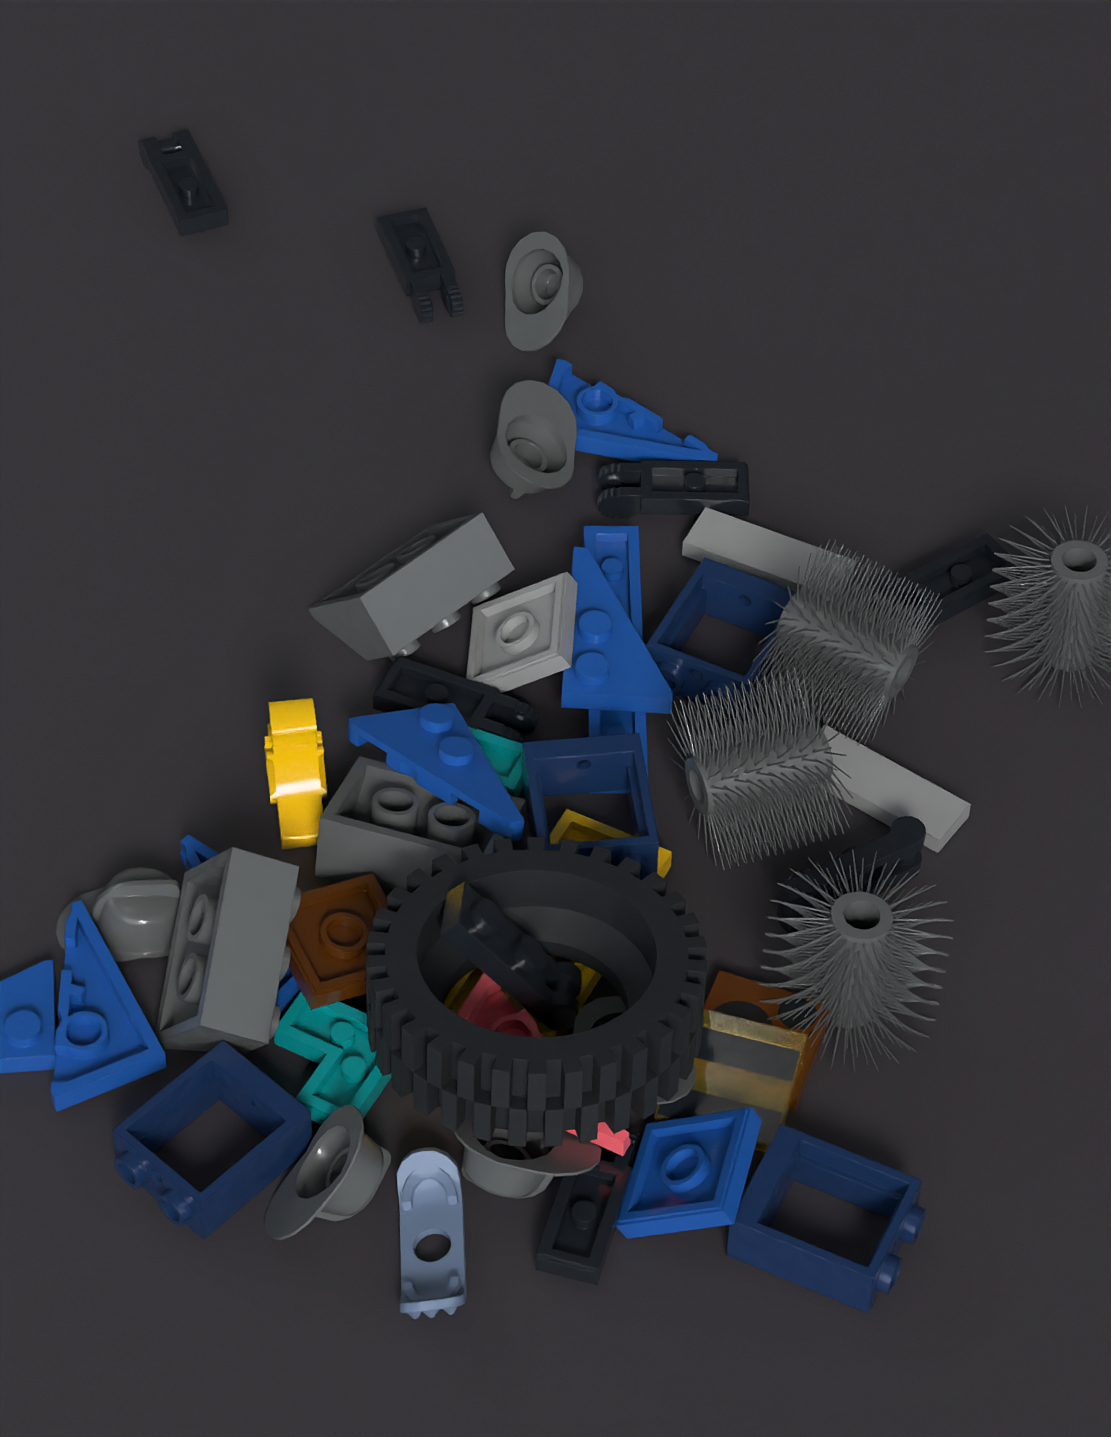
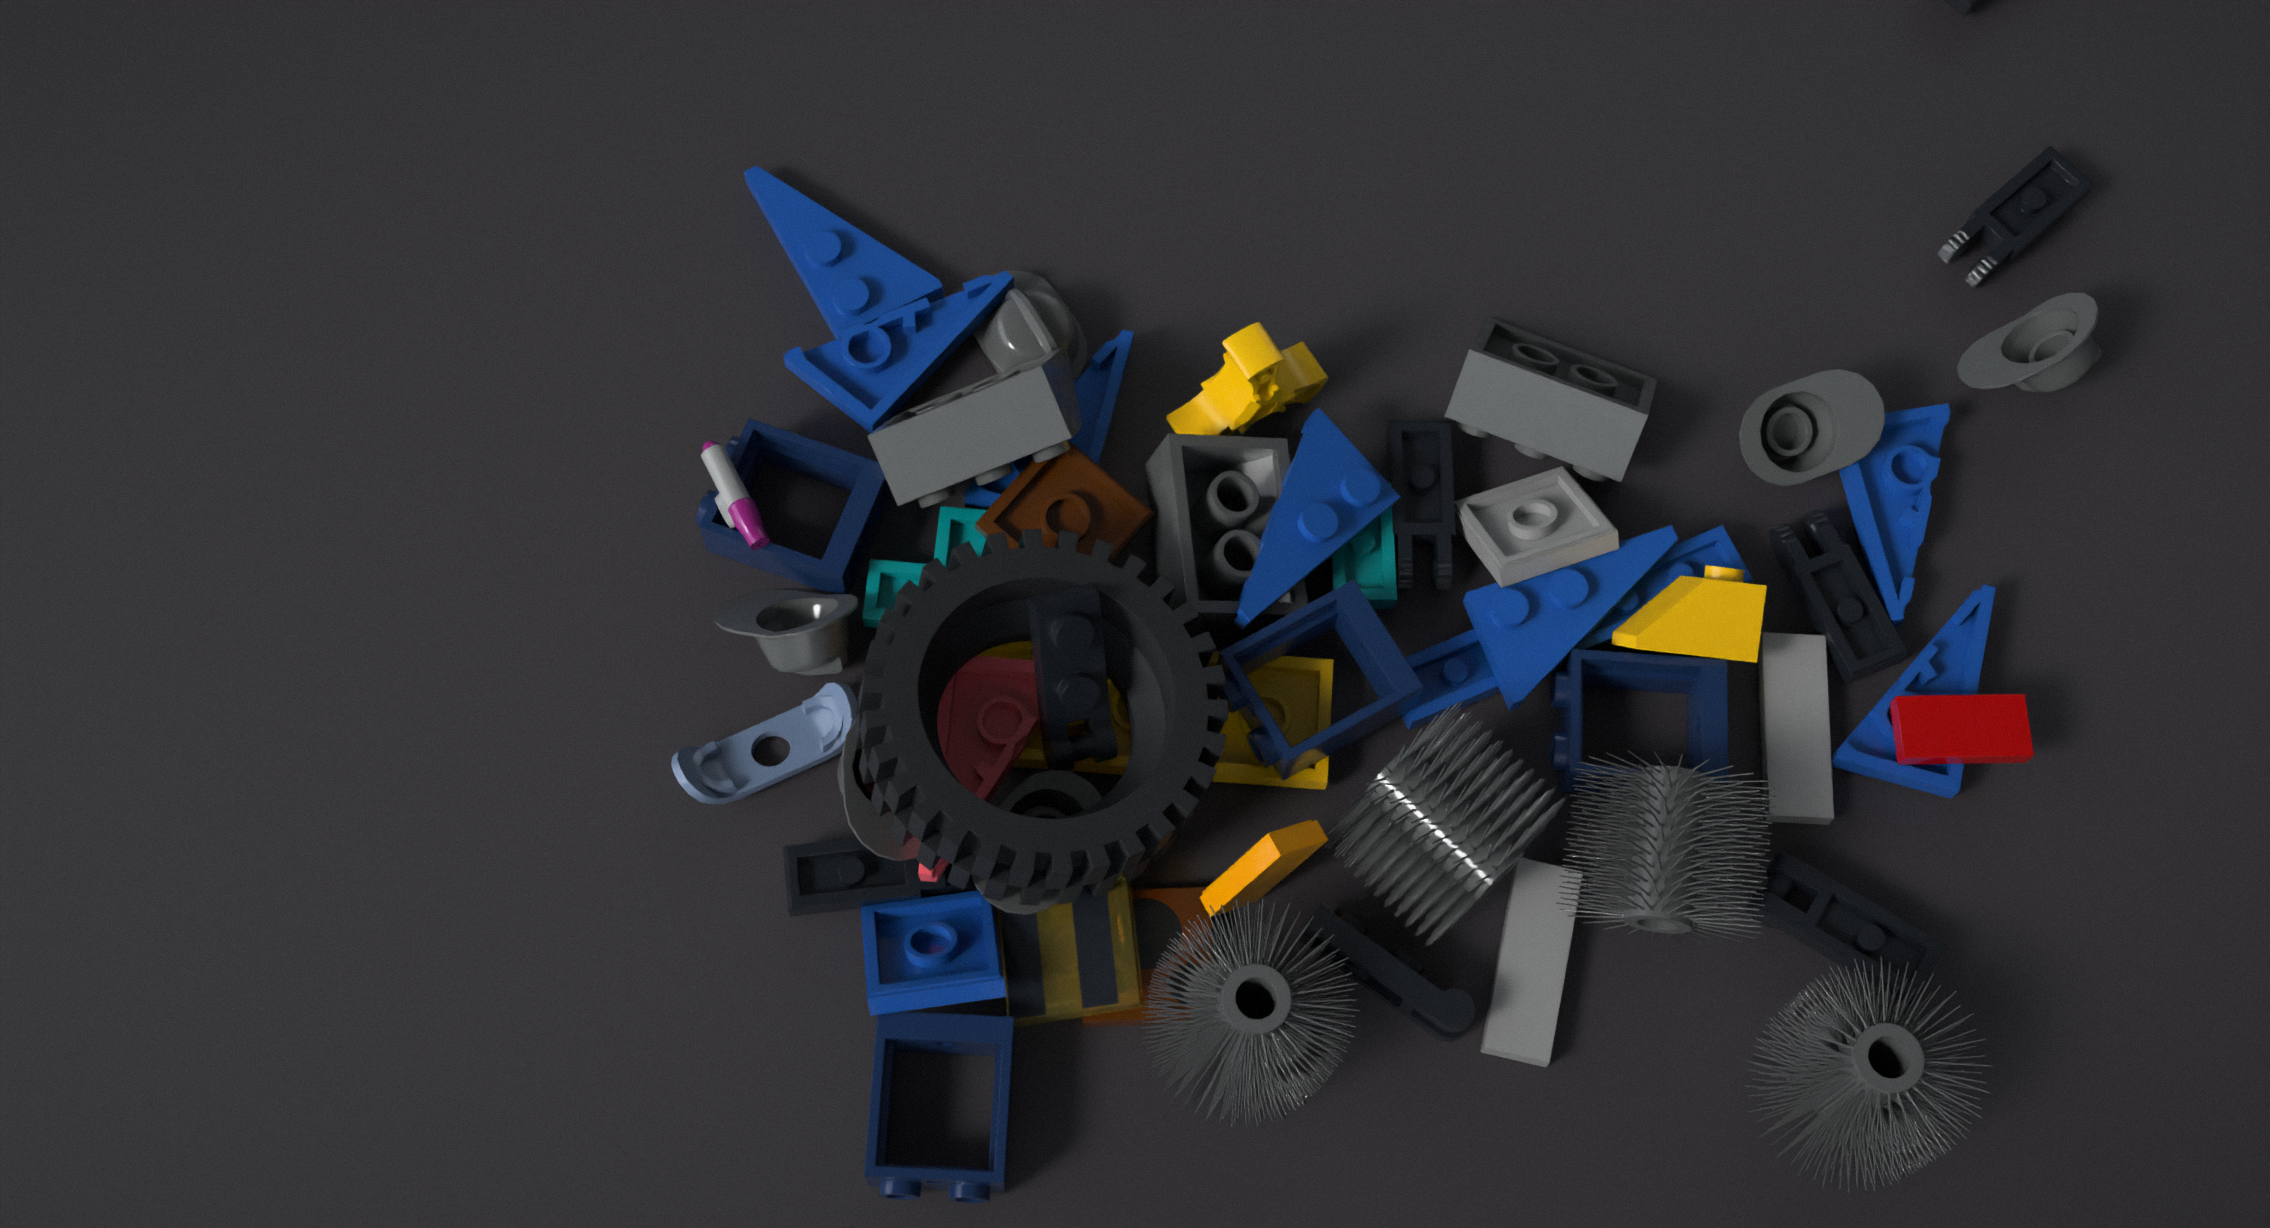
camera: 65 degrees right, 20 degrees up
(192, 1161) = (733, 498): none -> piece
(660, 559) = (1700, 618): none -> yellow slope
(733, 906) = (1263, 866): none -> light orange tile
(800, 479) = (1944, 667): none -> blue wing
(826, 452) = (1961, 729): none -> red tile

